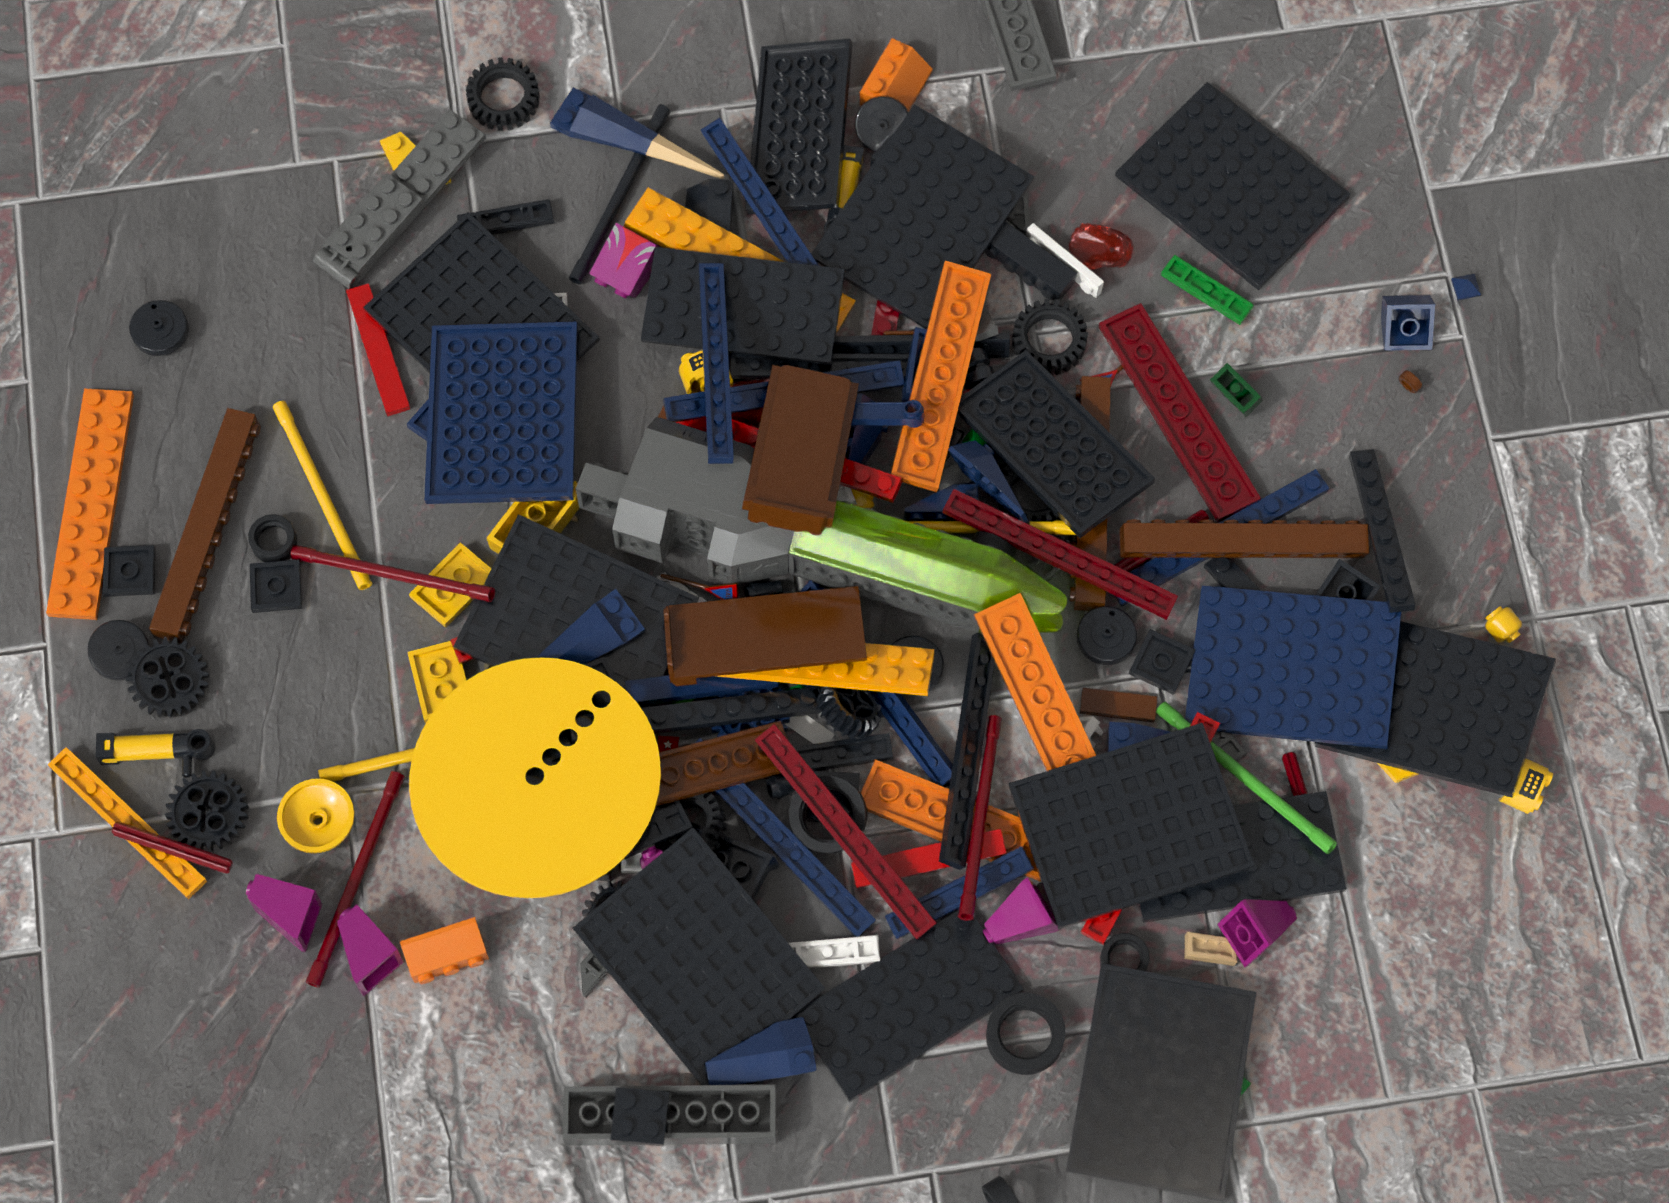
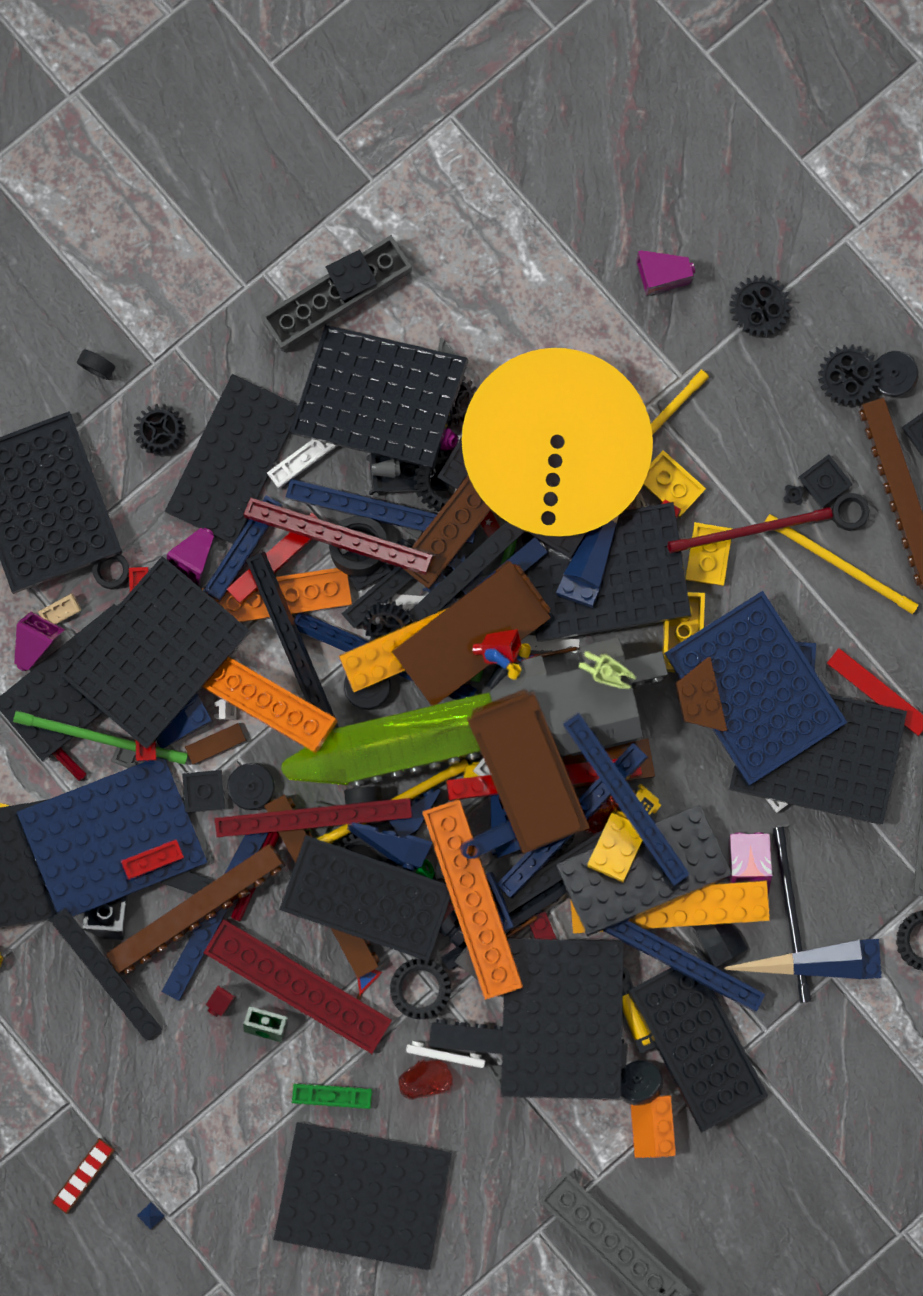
camera: 145 degrees right, 15 degrees up
(113, 748) = (824, 326): piece -> none
(114, 809) = (806, 268): light orange plate -> none
(172, 847) = (763, 267): dark red axle -> none
(311, 801) = (690, 330): yellow dish -> none
(314, 588) = (798, 494): none -> black plate
(367, 949) = (595, 278): magenta slope -> none
(390, 793) = (652, 390): dark red piece -> none
(444, 951) = (544, 308): orange slope -> none
(515, 216) = (855, 846): black plate -> none
(566, 429) = (701, 698): none -> reddish brown wing
(648, 483) = (607, 670): none -> yellowish green hinge
(743, 868) = (386, 468): none -> dark grey cone
(746, 587) = (503, 649): none -> red torso
(758, 338) = (616, 848): none -> yellow plate
(773, 1053) = (298, 366): dark blue wedge -> none
(963, 1090) = (164, 423): none -> black gear
(968, 898) = (230, 537): dark red piece -> none
(1033, 1003) = (146, 459): black tyre -> none
(1262, 611) = (152, 859): none -> red plate
(1270, 440) = (220, 1001): none -> dark red slope
(1407, 322) = (176, 1157): dark blue slope -> none
(1410, 382) = (148, 1109): reddish brown tile -> none
(1516, 361) = (83, 1175): none -> tile

